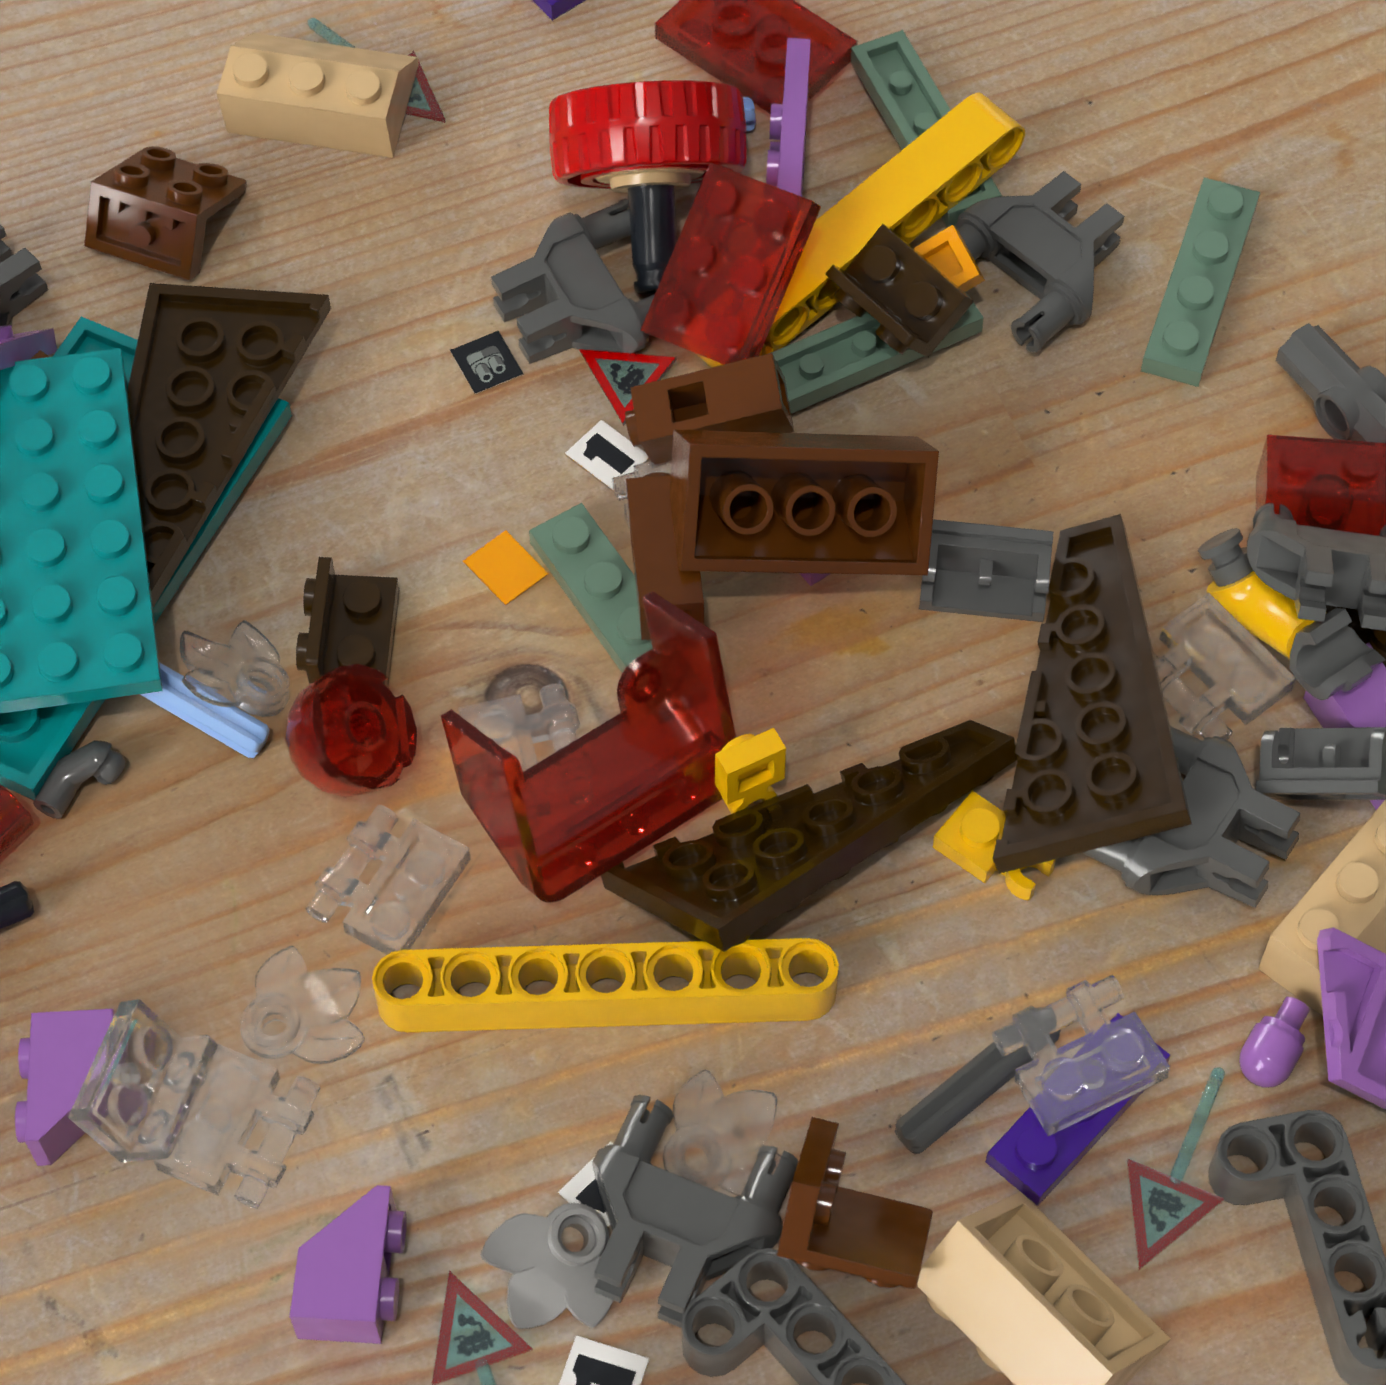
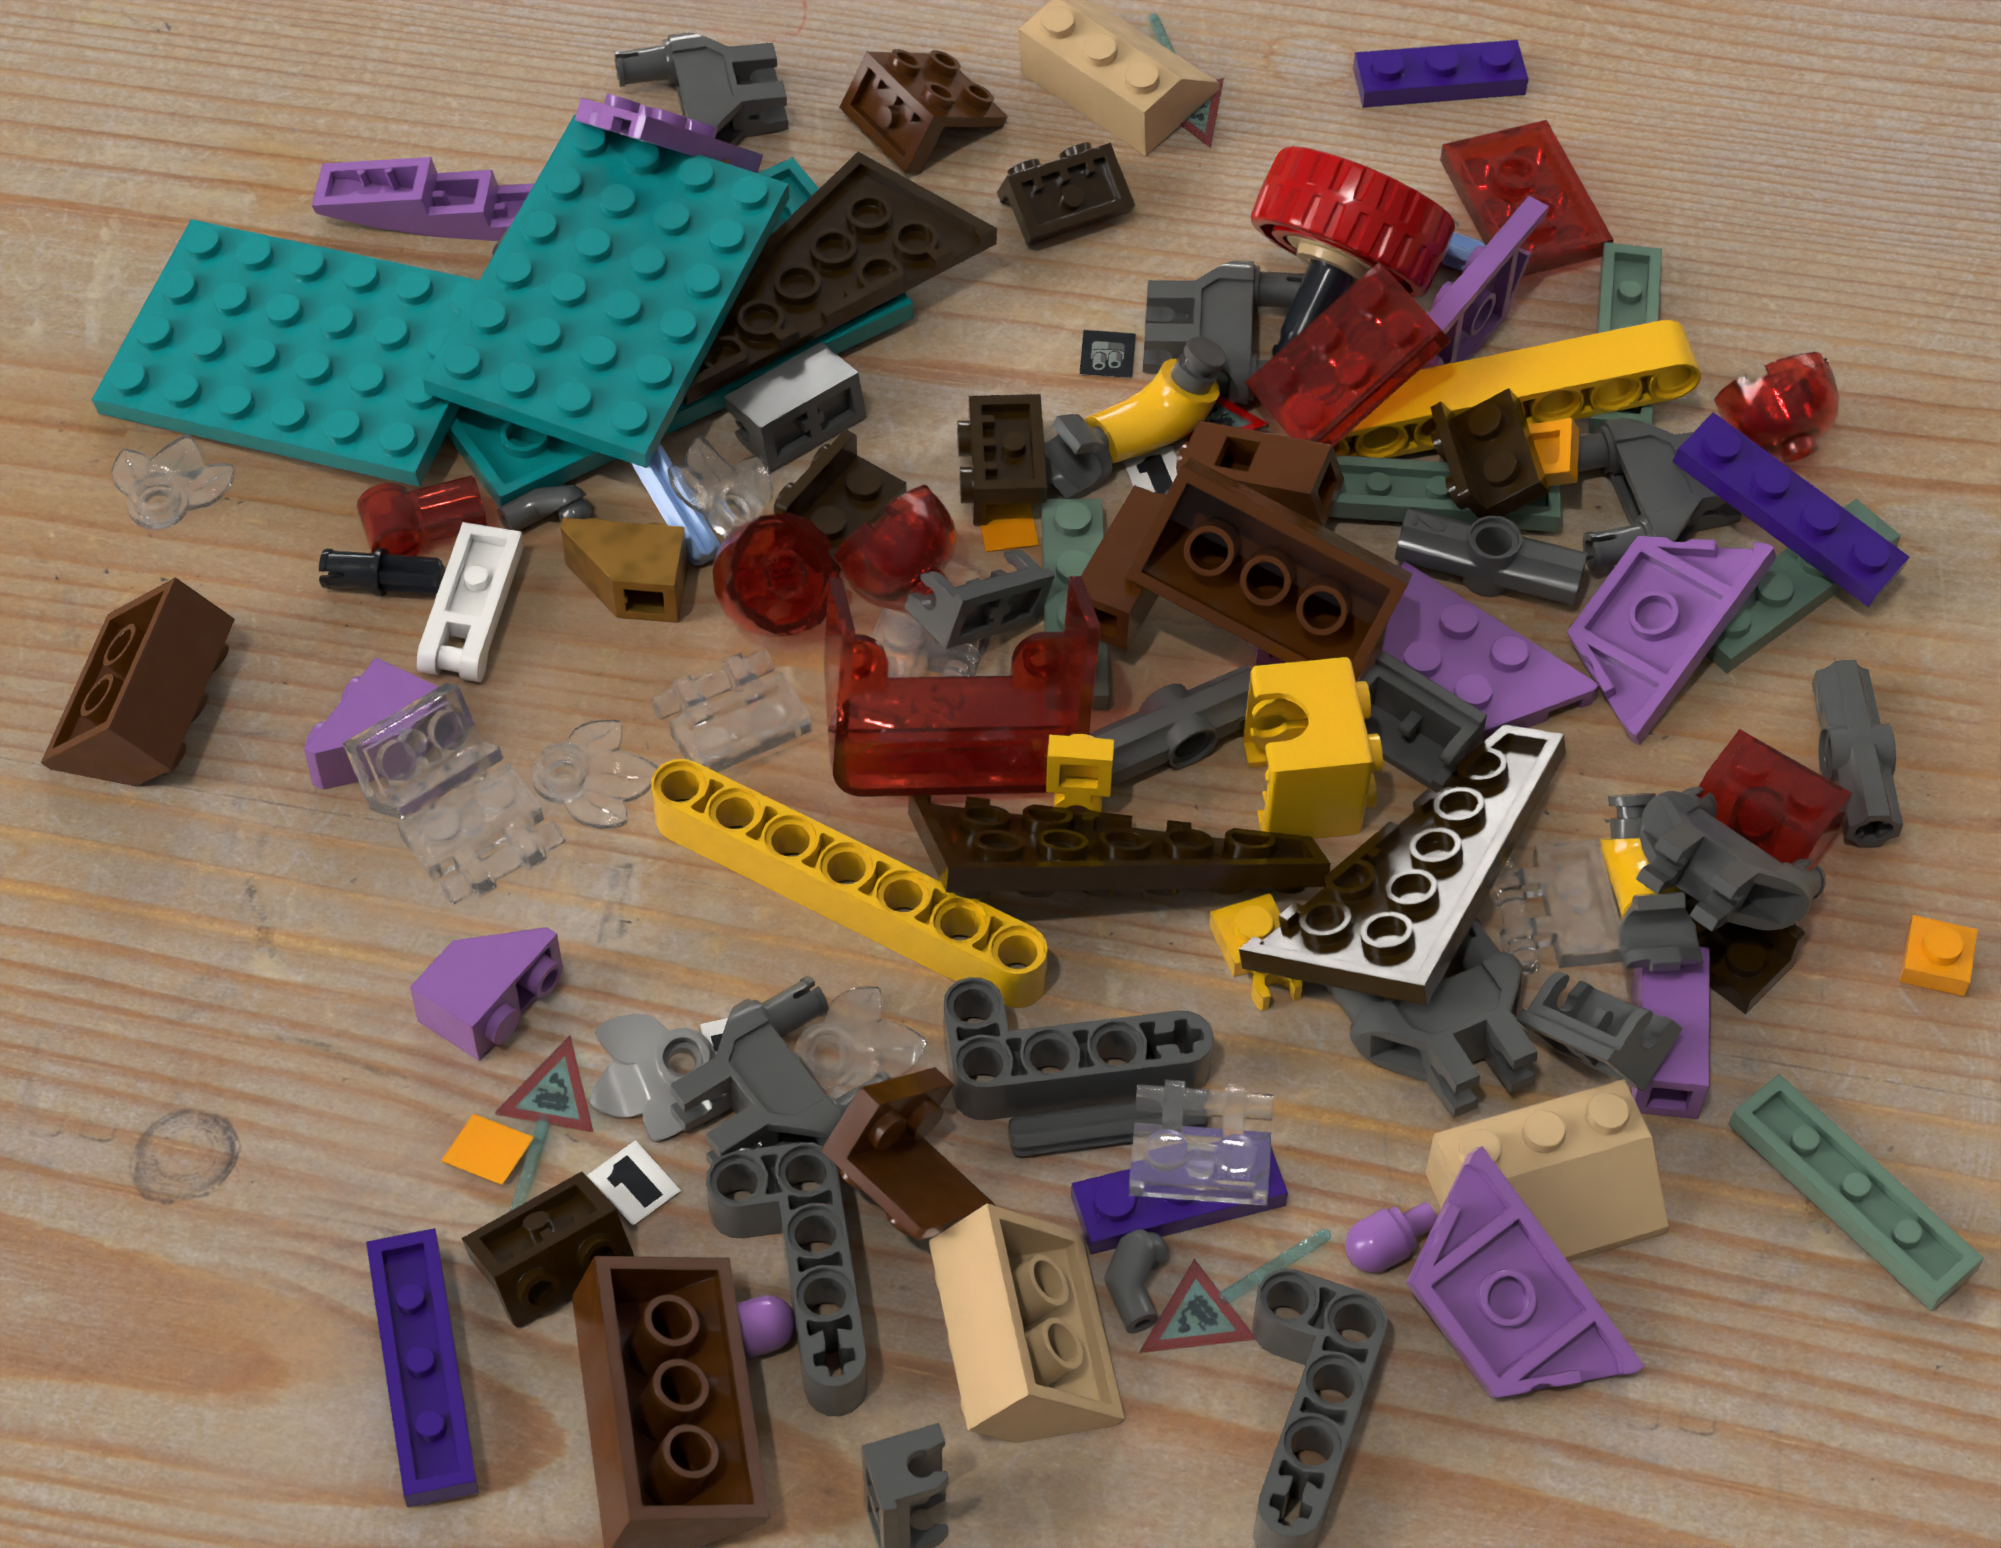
camera: 30 degrees right, 5 degrees down
(70, 904) = (470, 601): none -> white plate
(198, 793) = (629, 565): none -> pearl gold slope
(247, 555) = (797, 405): none -> dark grey hinge
(355, 229) = (1066, 192): none -> dark brown bracket
(445, 645) = (899, 547): none -> clear red cylinder
(469, 506) = (1004, 452): none -> dark brown bracket
(548, 655) = (982, 606): none -> dark grey hinge
(580, 394) = (1154, 417): none -> piece
(798, 671) = (1178, 724): none -> dark grey piece
(910, 1031) = (1071, 1047): none -> dark grey beam
(936, 626) = (1315, 740): none -> yellow piece
(977, 377) = (1491, 556): none -> dark grey piece
(1009, 480) = (1480, 657): none -> medium lavender wing
(1088, 1206) = (1126, 1274): none -> dark grey arm
(1101, 128) = (1785, 407): none -> clear red cylinder
(1128, 370) = (1661, 619): none -> medium lavender wing
(1170, 215) = (1790, 509): none -> dark purple plate

